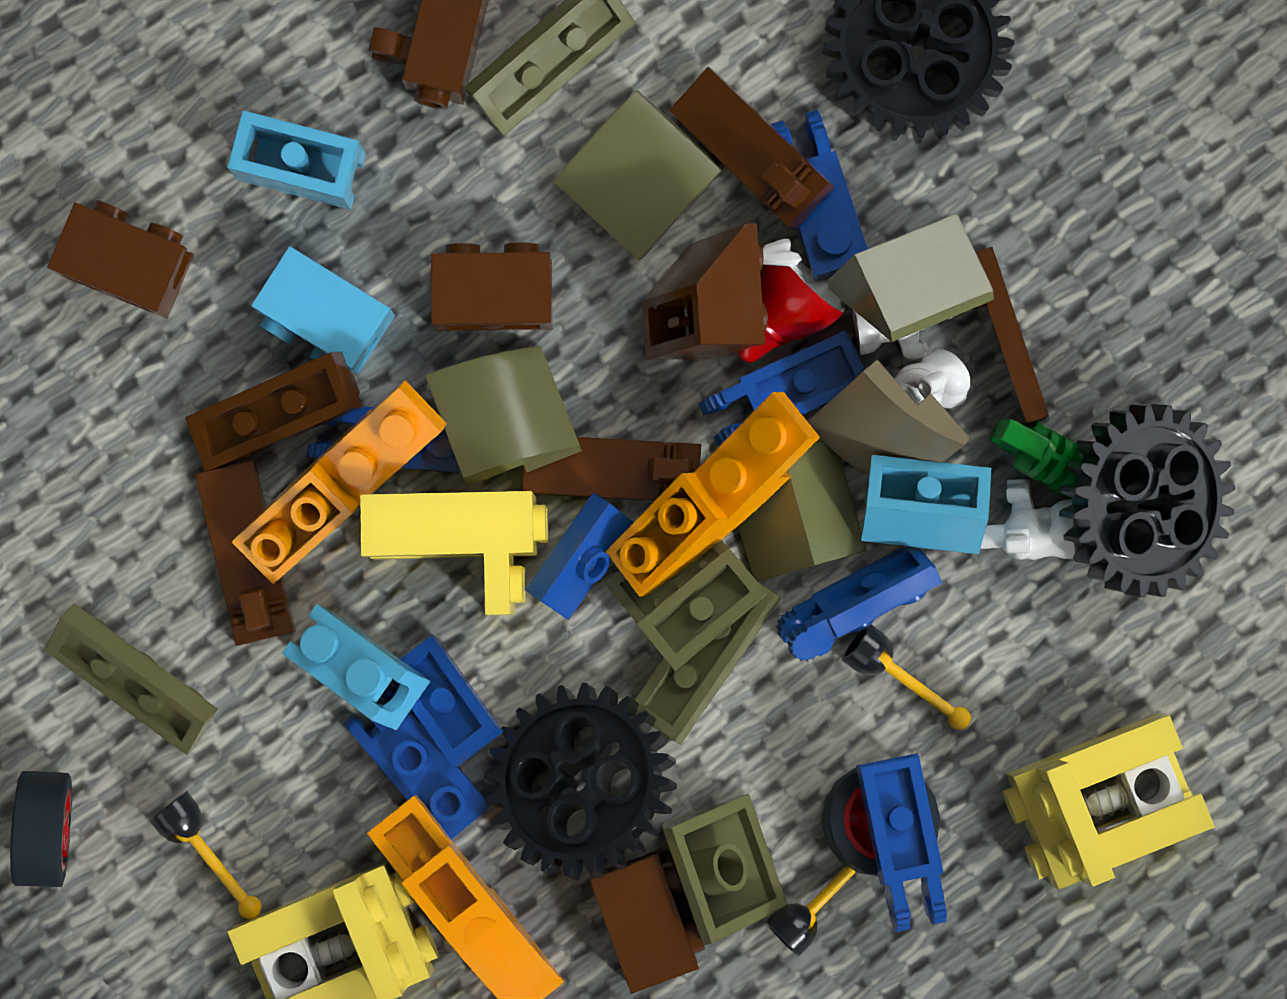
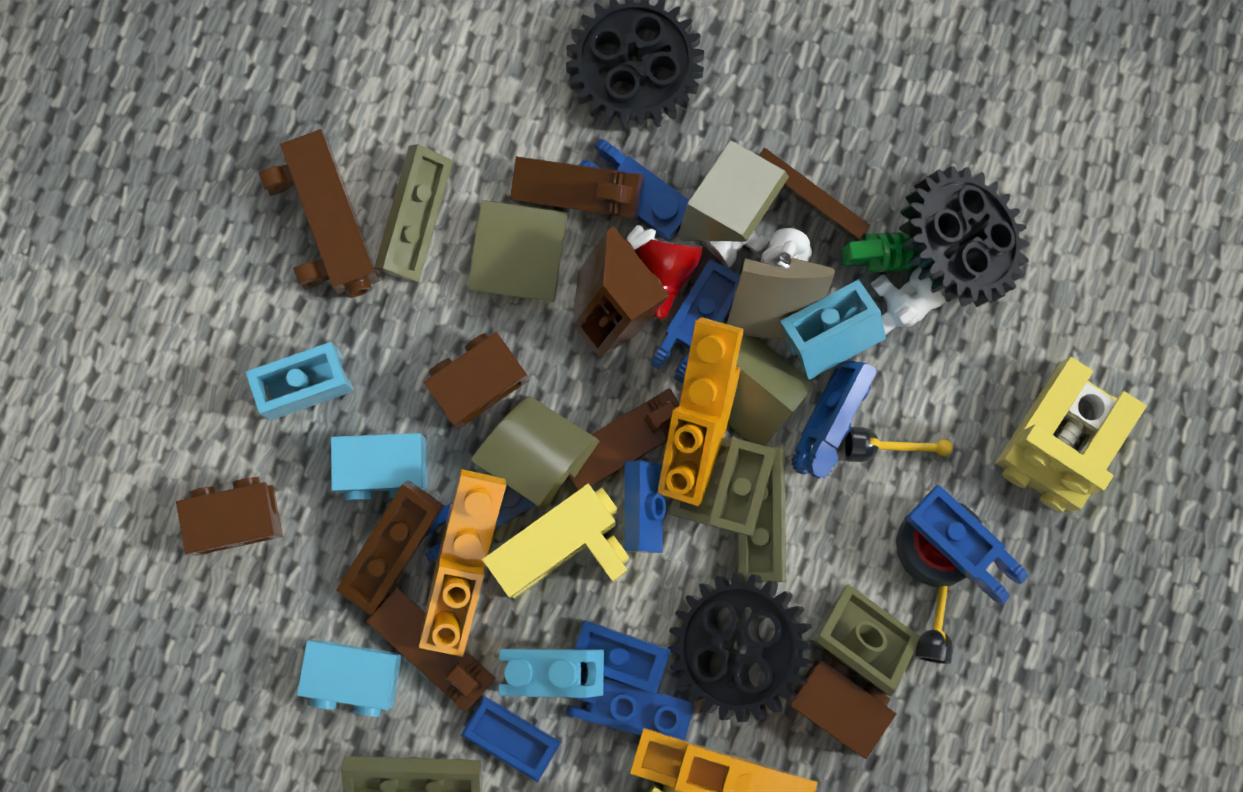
camera: 30 degrees left, 5 degrees down
(137, 521) = (349, 676): none -> medium azure brick
(266, 707) = (511, 738): none -> blue tile

